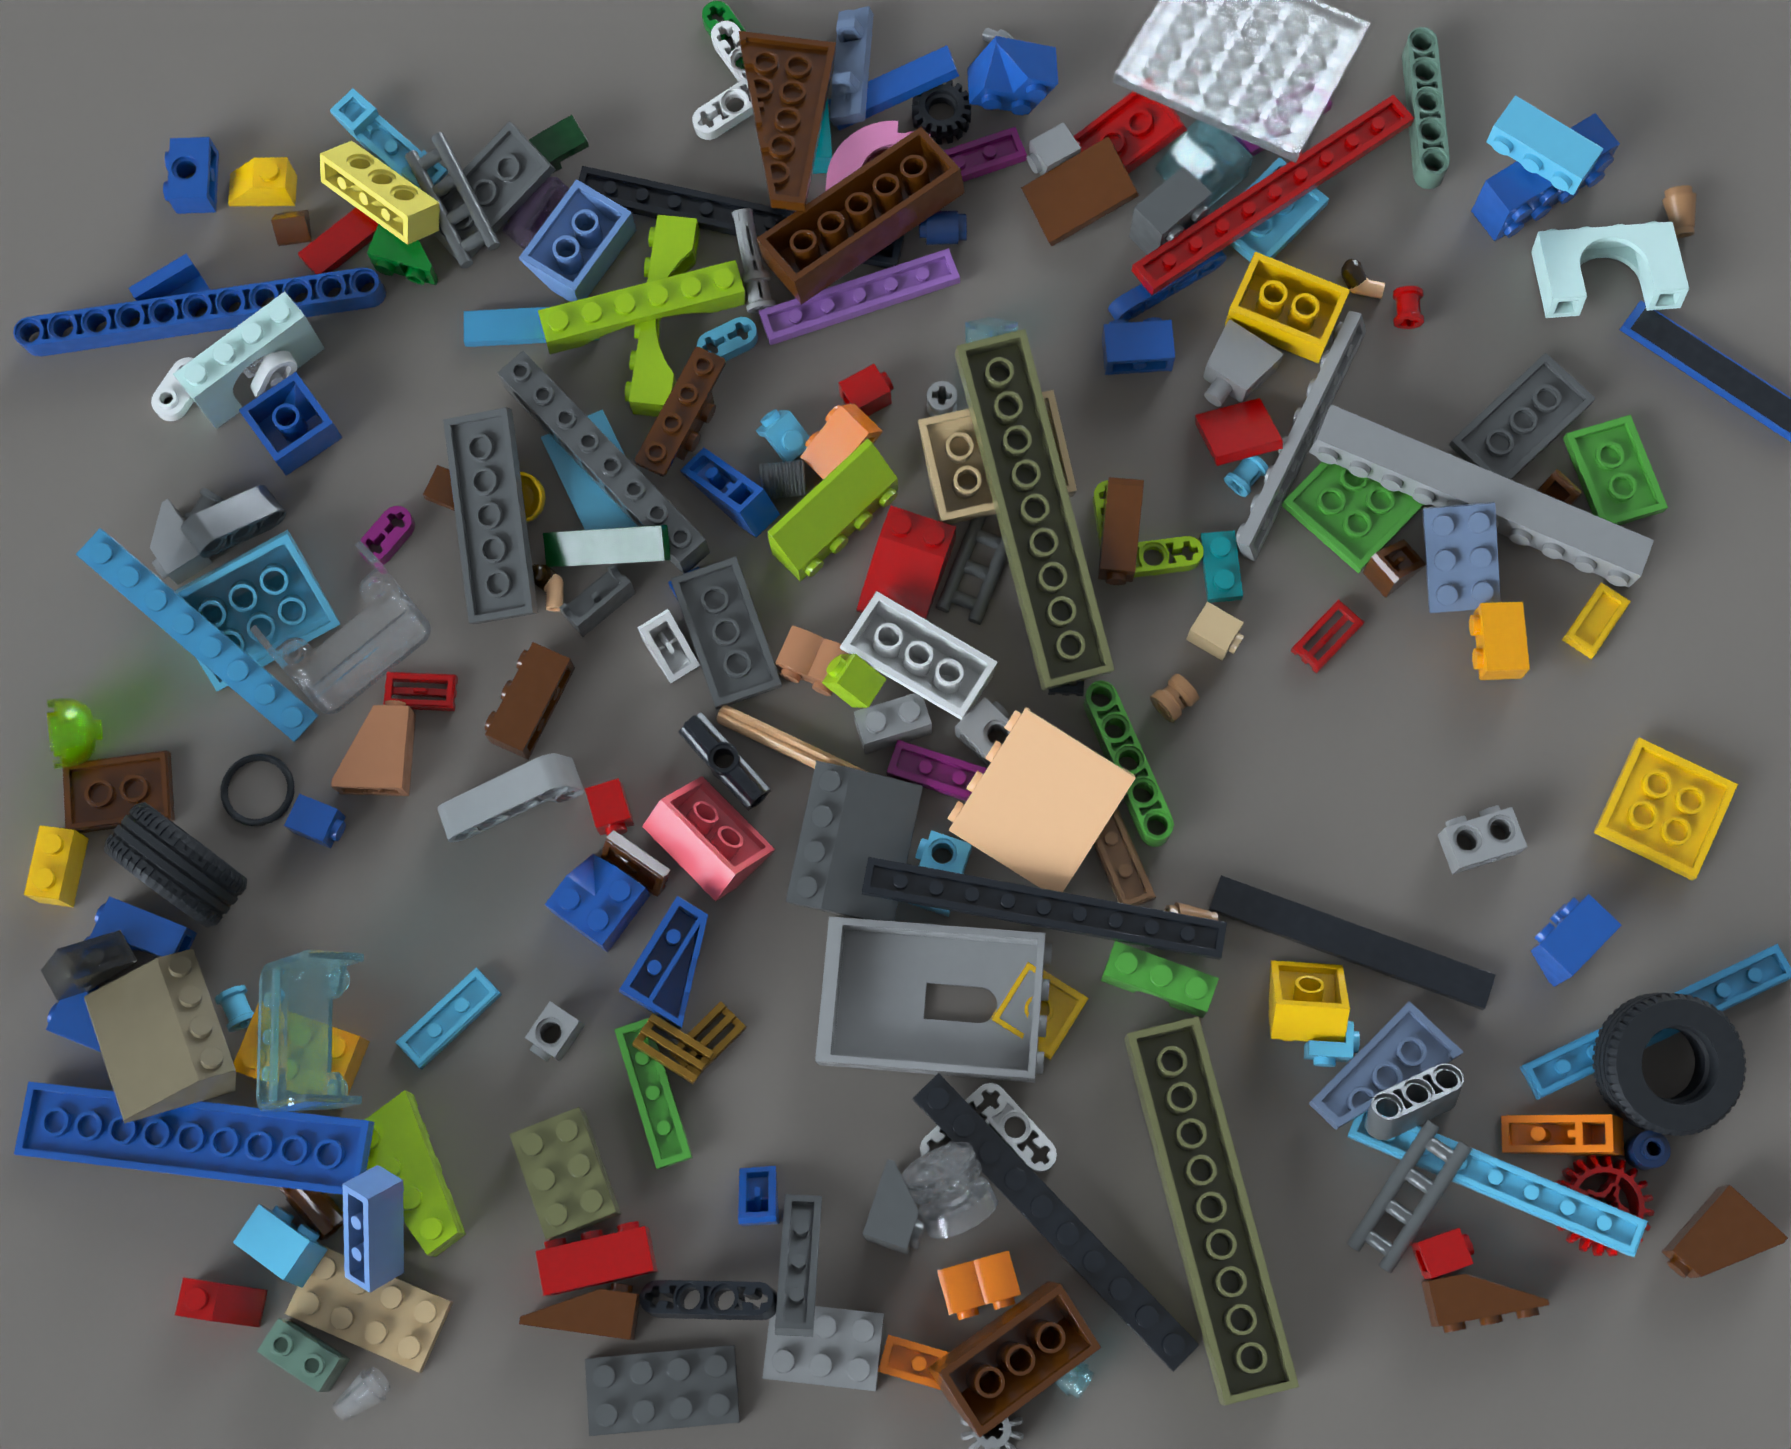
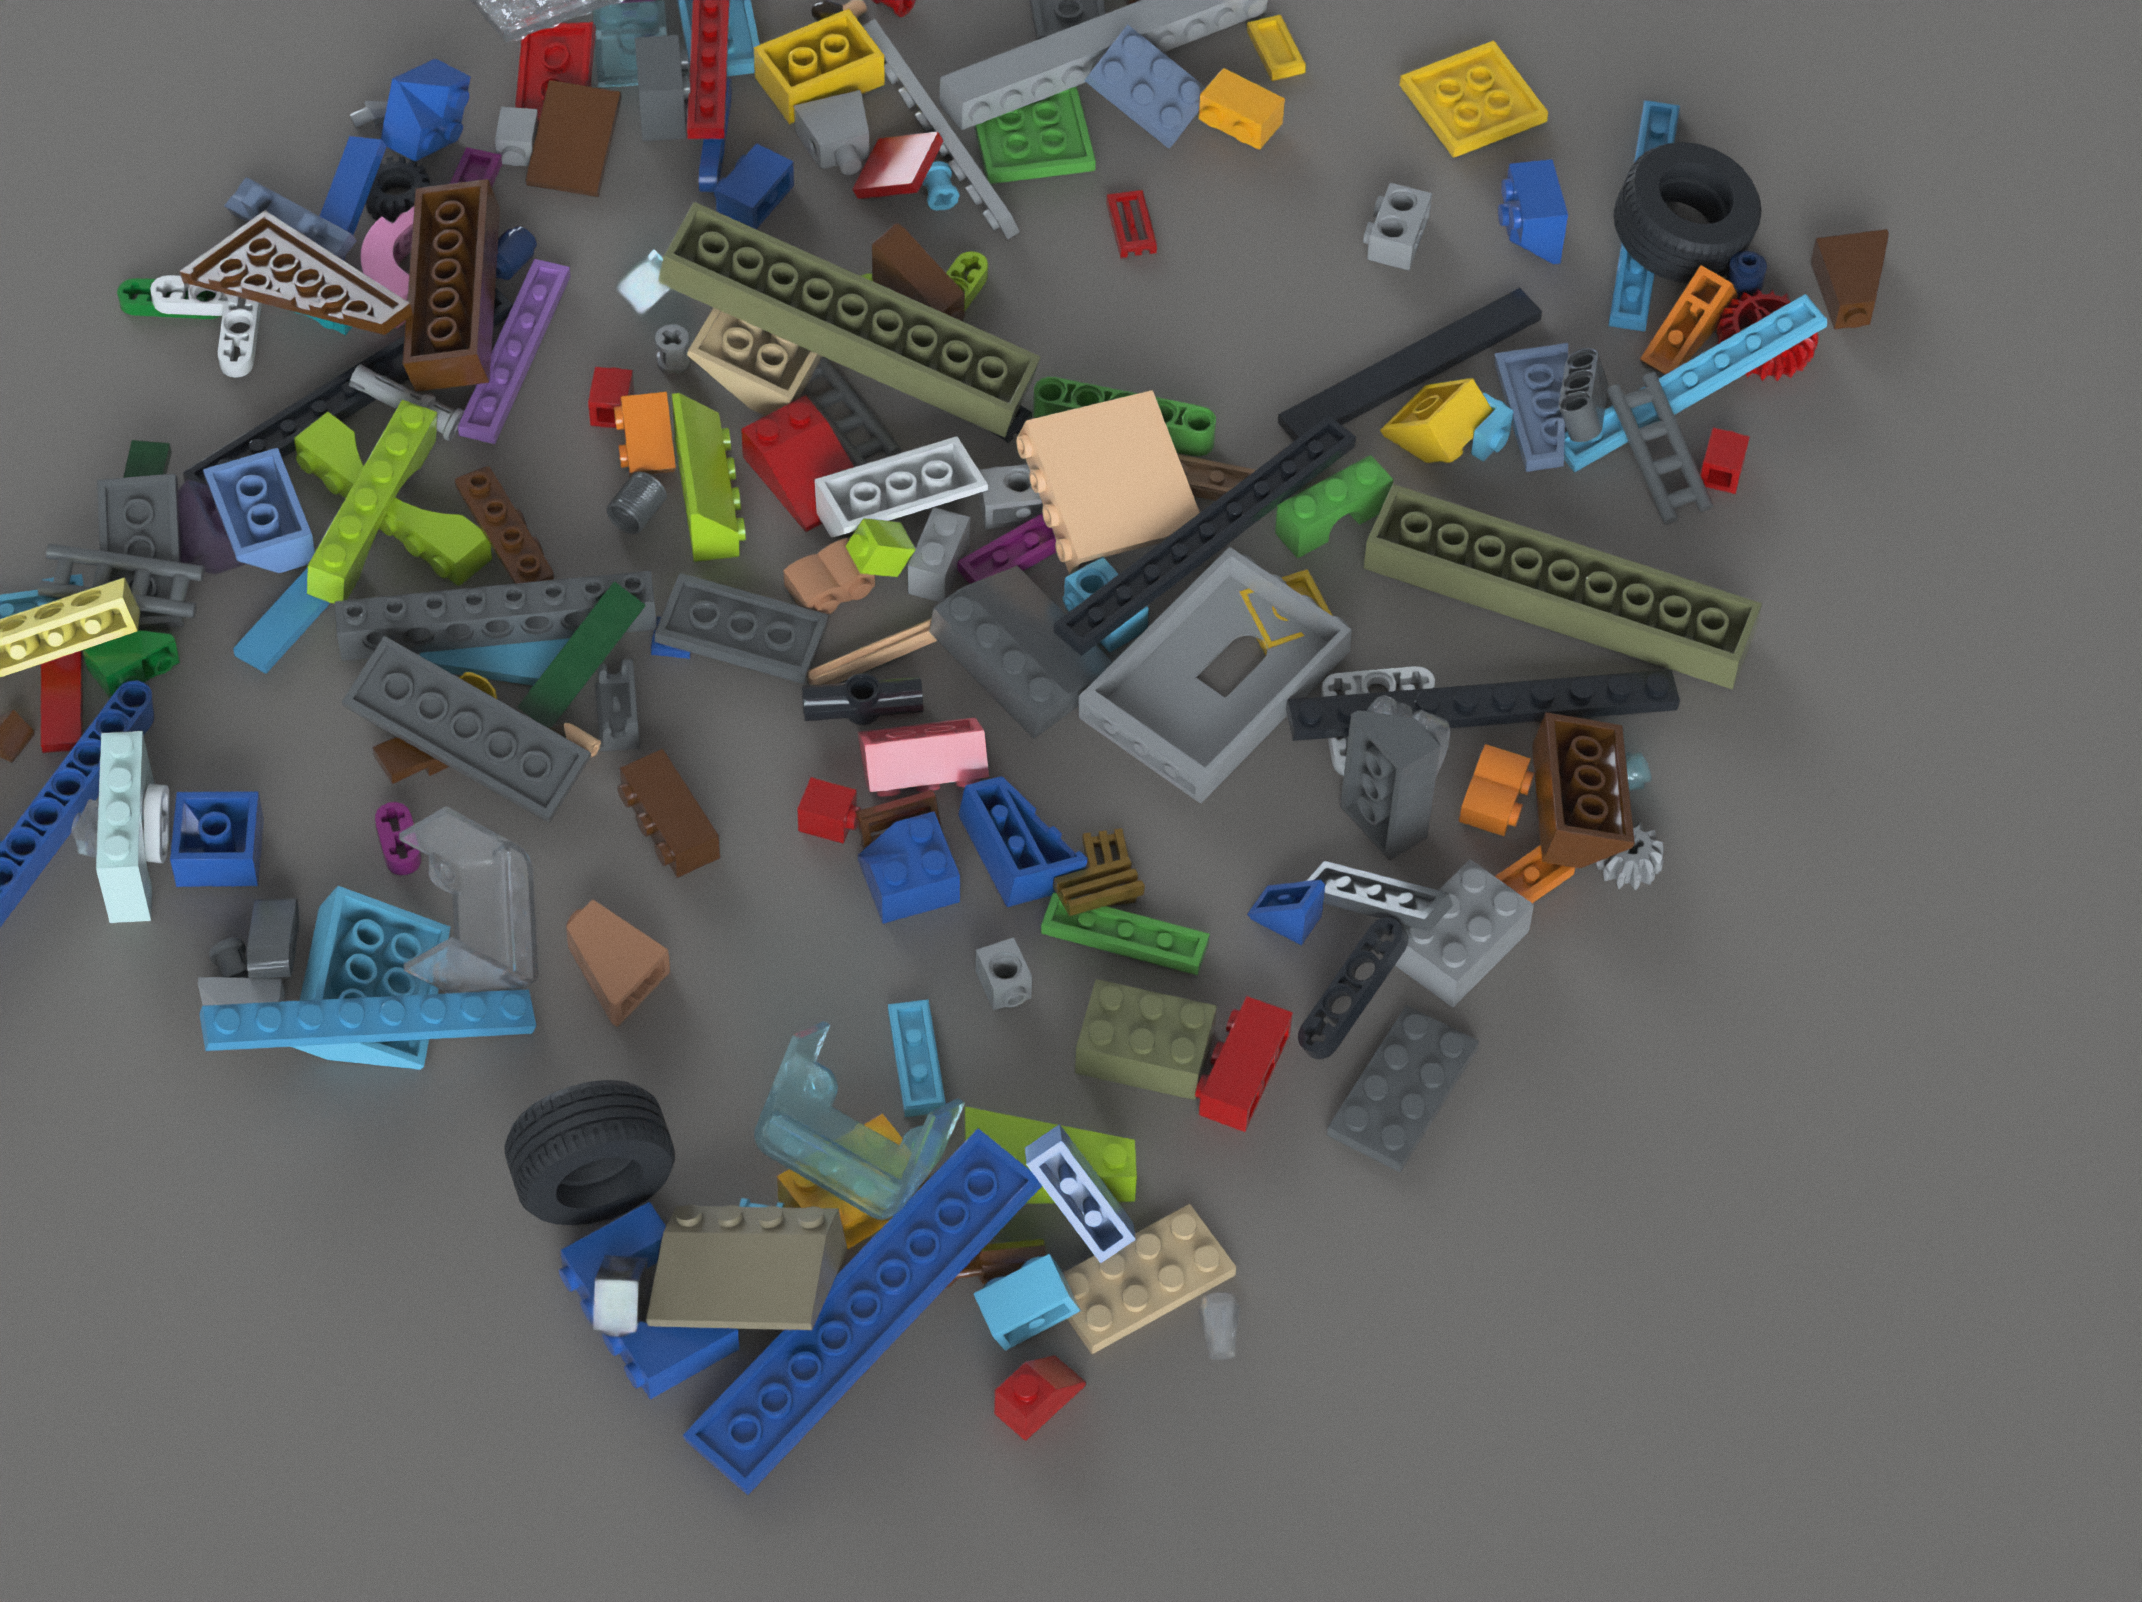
camera: 60 degrees left, 20 degrees down
(56, 866) = (484, 1289): yellow brick -> none
(72, 732) = (356, 1201): clear neon green cylinder -> none
(106, 789) = (449, 1206): reddish brown tile -> none
(172, 388) = (81, 920): white plate -> none
(266, 820) = (552, 1054): black tyre -> none
(303, 1355) = (1146, 1346): sand green brick -> none
(316, 821) = (633, 1048): blue brick -> none
(438, 705) = (557, 923): red tile -> none
(510, 794) = (760, 839): light grey beam -> none
(596, 1313) = (1298, 1087): reddish brown slope -> none
(668, 646) = (714, 678): white slope -> none
(727, 340) = (452, 469): medium azure beam -> none
(731, 491) = (613, 546): blue slope -> none
(783, 434) = (591, 477): medium azure bracket -> none
(1174, 698) = (1094, 357): medium nougat wheel -> none
(1216, 632) = (1061, 288): tan brick -> none
(1221, 566) = (1006, 255): teal plate -> none
(1393, 567) = (1113, 146): reddish brown slope -> none
(1469, 1298) = (1775, 462): reddish brown slope -> none

